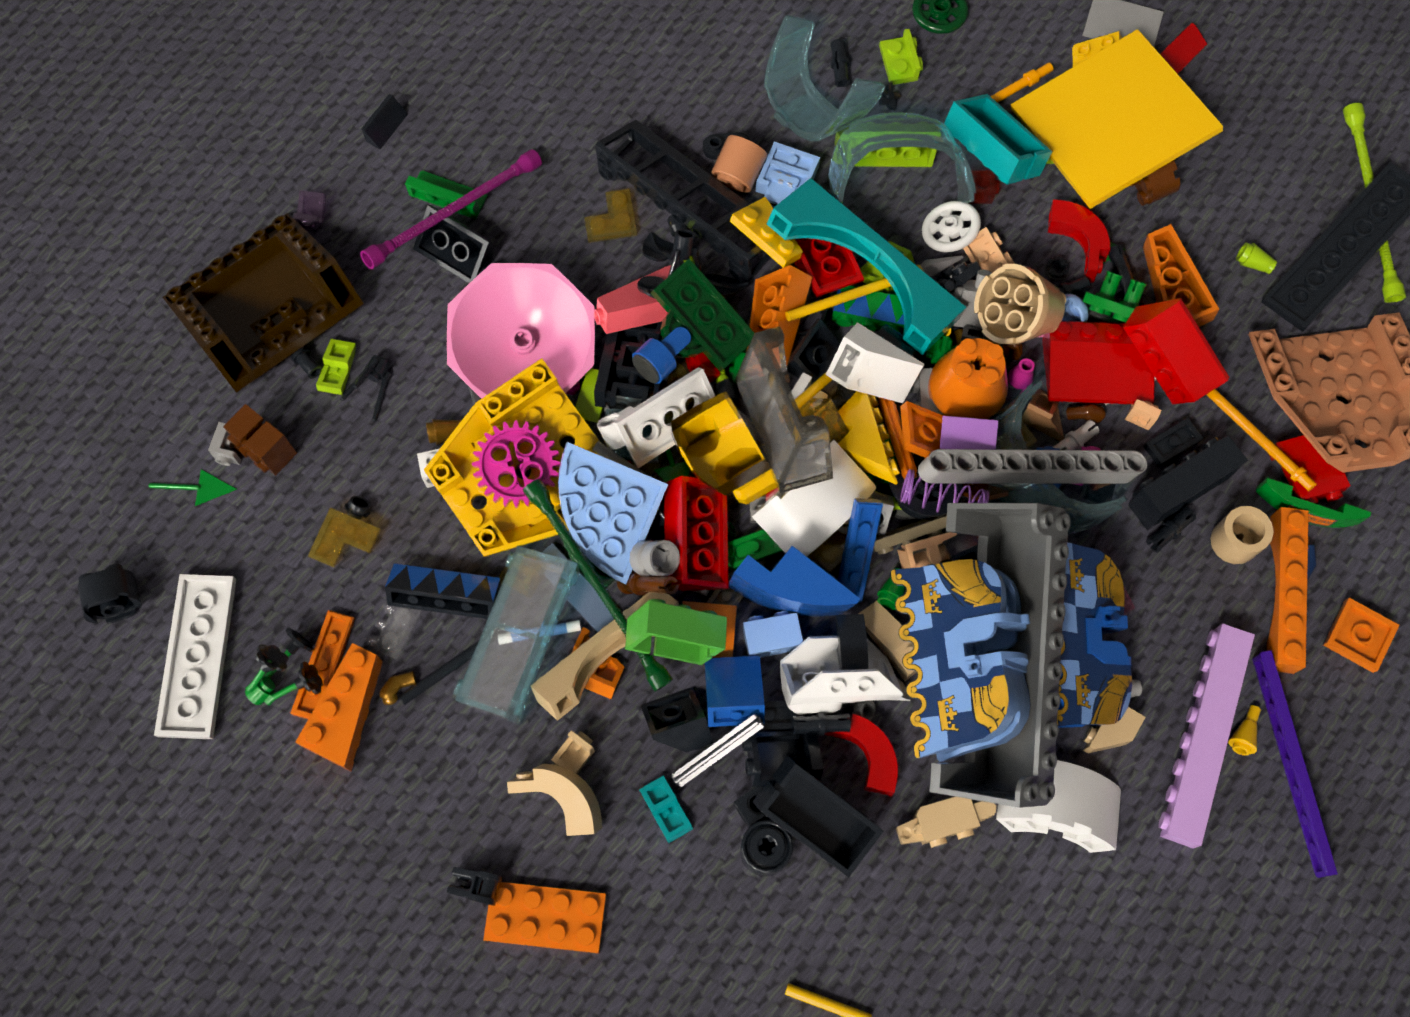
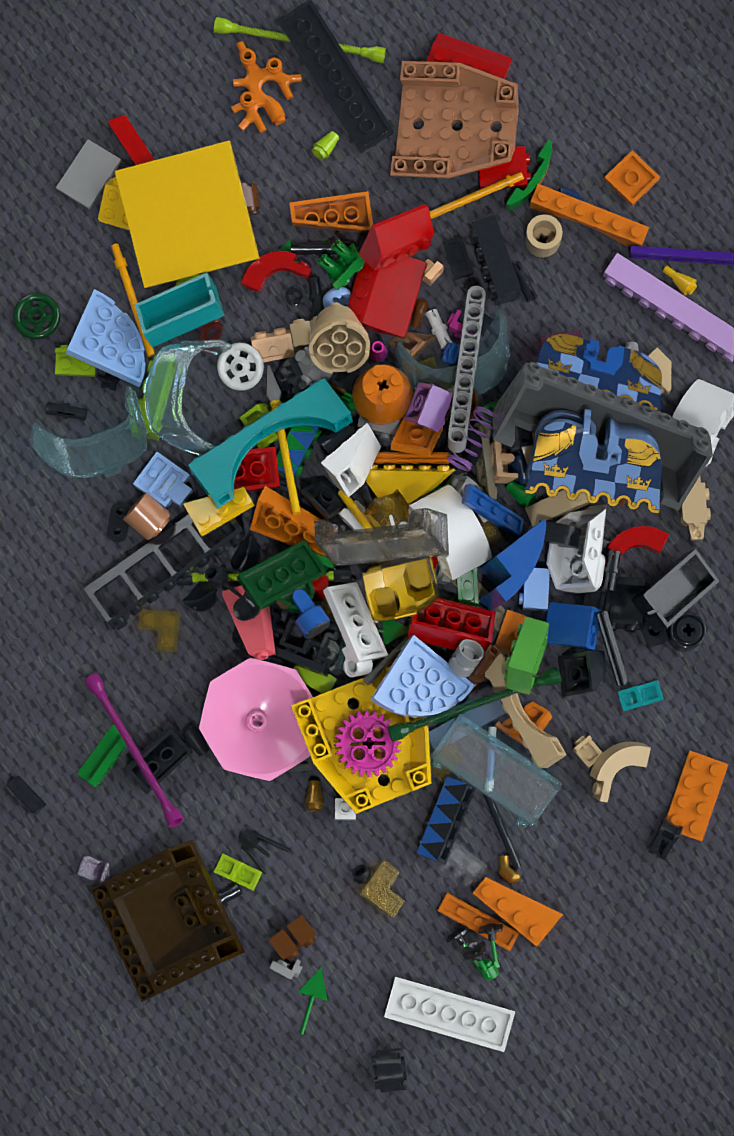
camera: 75 degrees left, 10 degrees up
(936, 74) = (109, 340): none -> light blue plate
(1281, 171) = (253, 82): none -> orange plant

